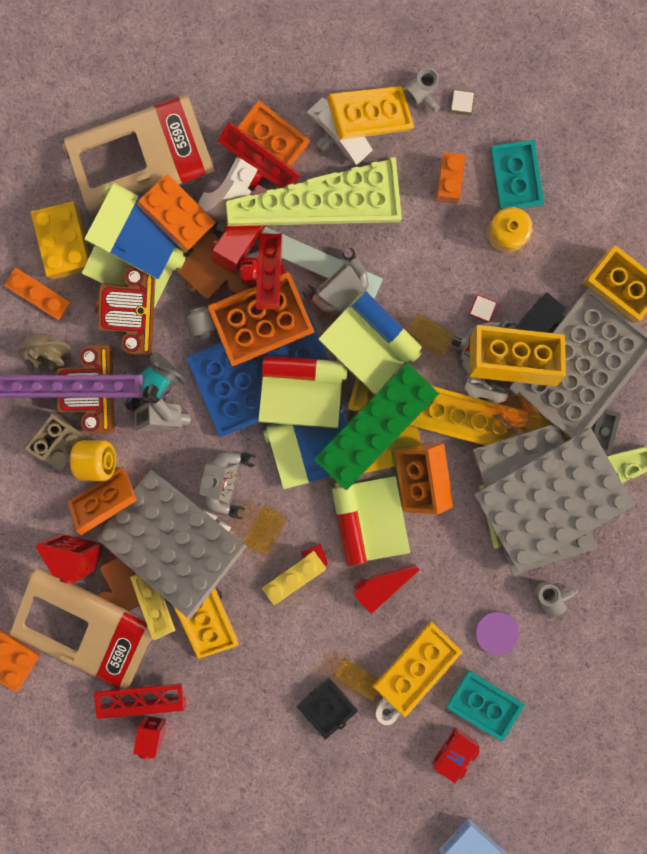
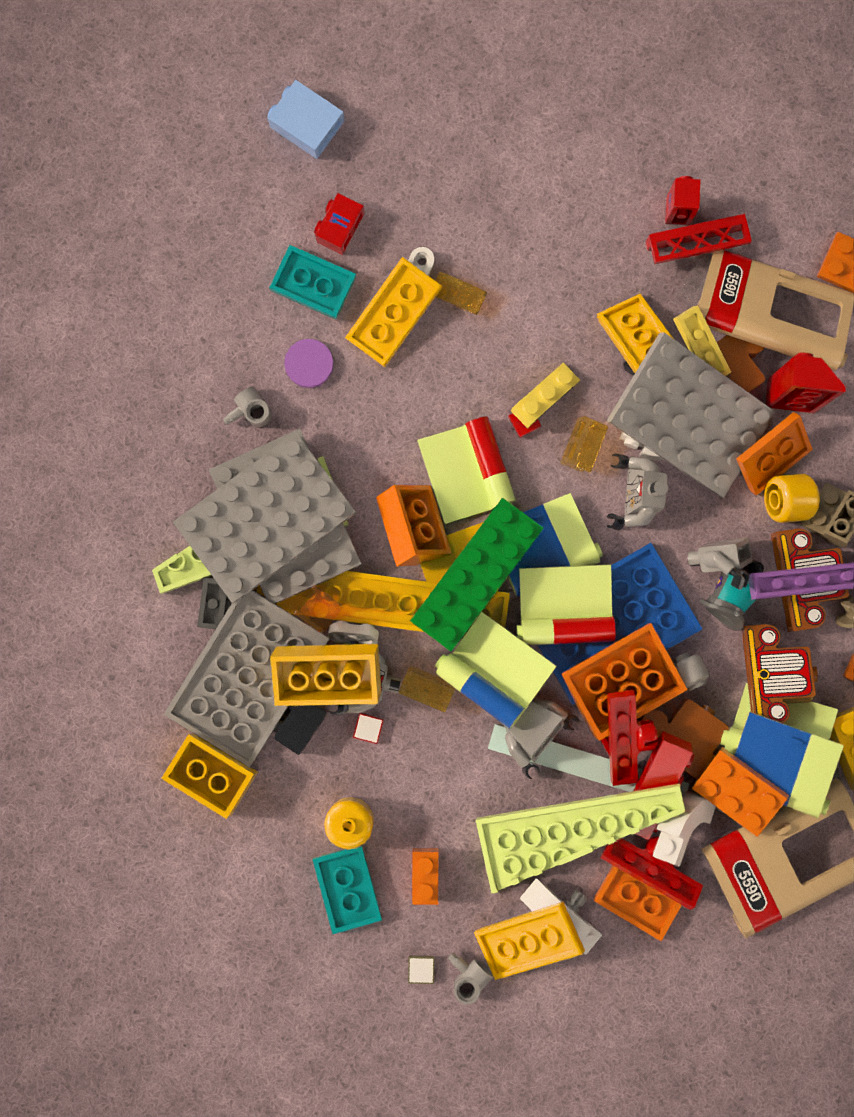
camera: 175 degrees right, 5 degrees down
(327, 708) = (488, 257): black plate -> none
(381, 587) = (446, 397): red slope -> none

